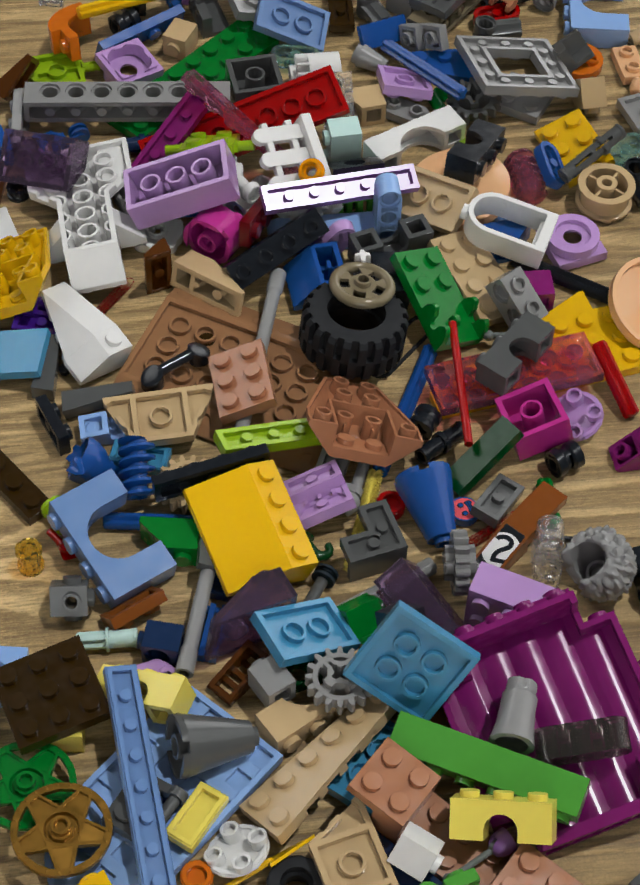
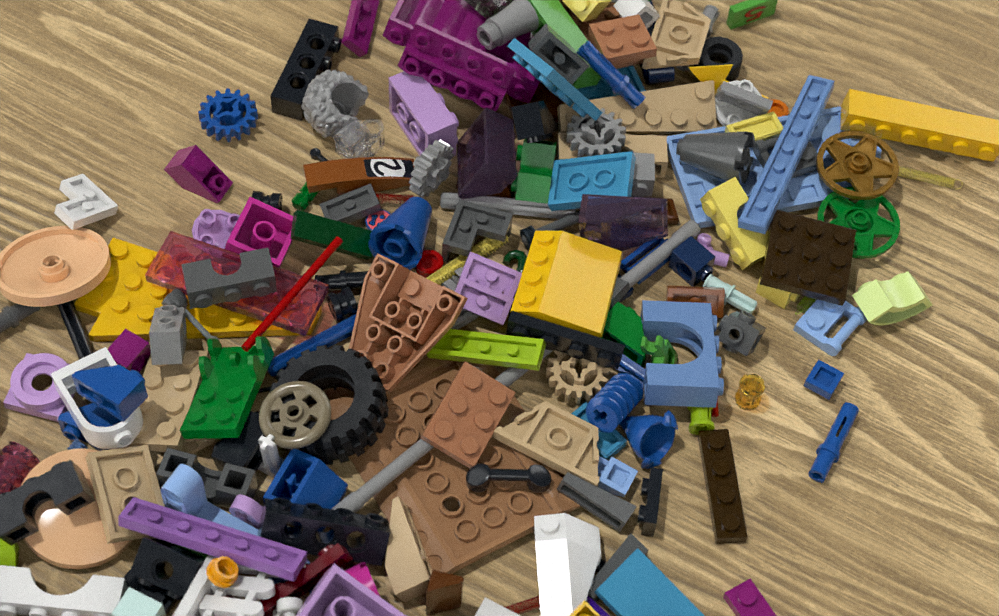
camera: 145 degrees left, 5 degrees up
(123, 534) = (661, 350): none -> bright green plate
(230, 834) = (743, 99): none -> light grey tile
(360, 736) = (619, 83): none -> blue pin
(439, 701) = (557, 53): none -> dark grey slope
(498, 211) = (112, 389): none -> blue slope
(615, 380) = (158, 235): red axle -> none

